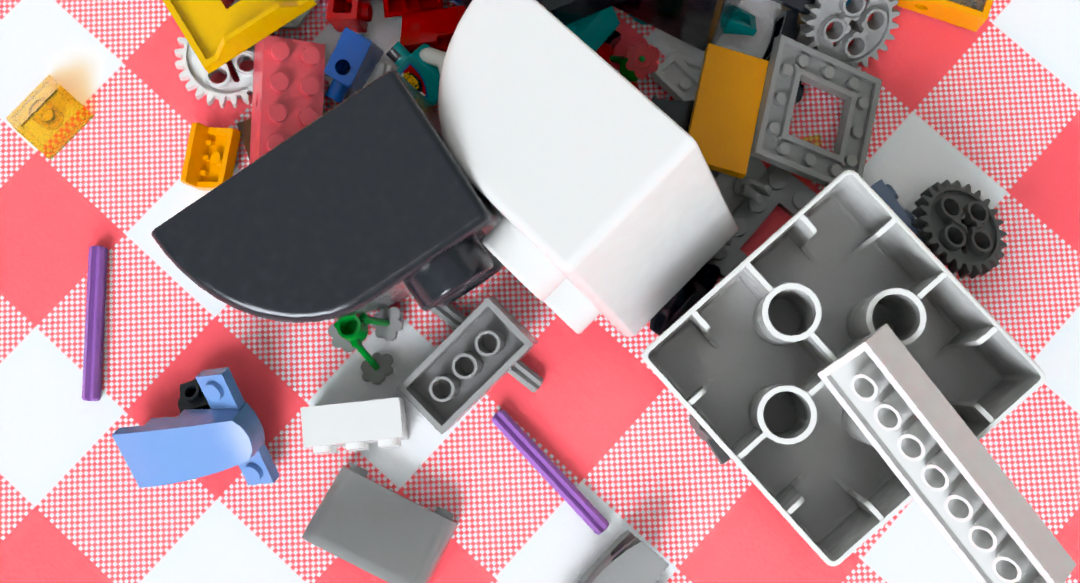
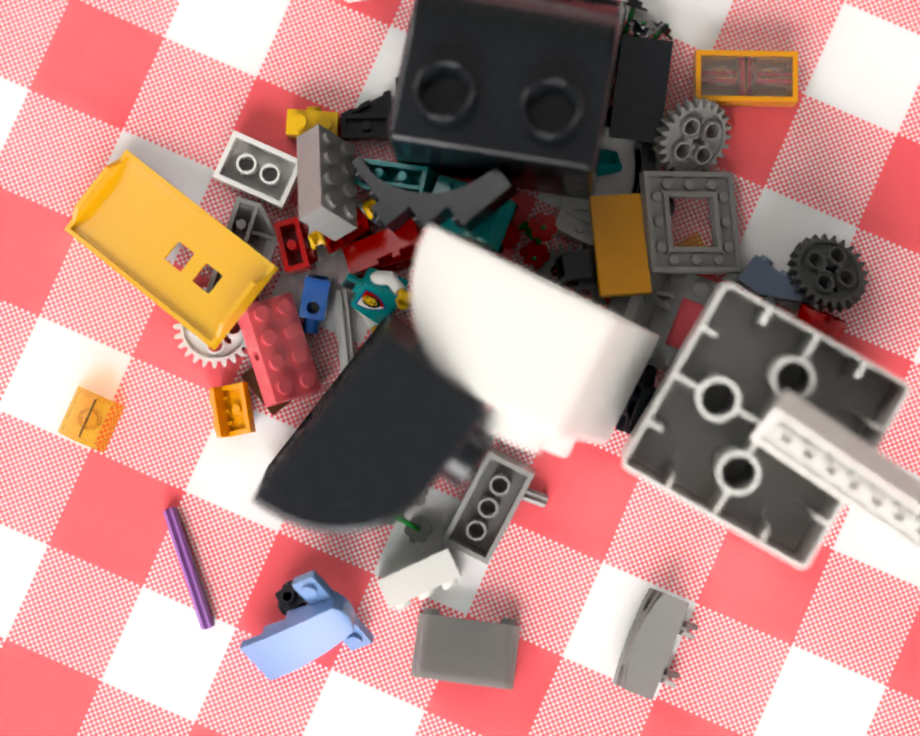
camera: 20 degrees left, 5 degrees up
(550, 472) = (576, 563): medium lavender axle -> none

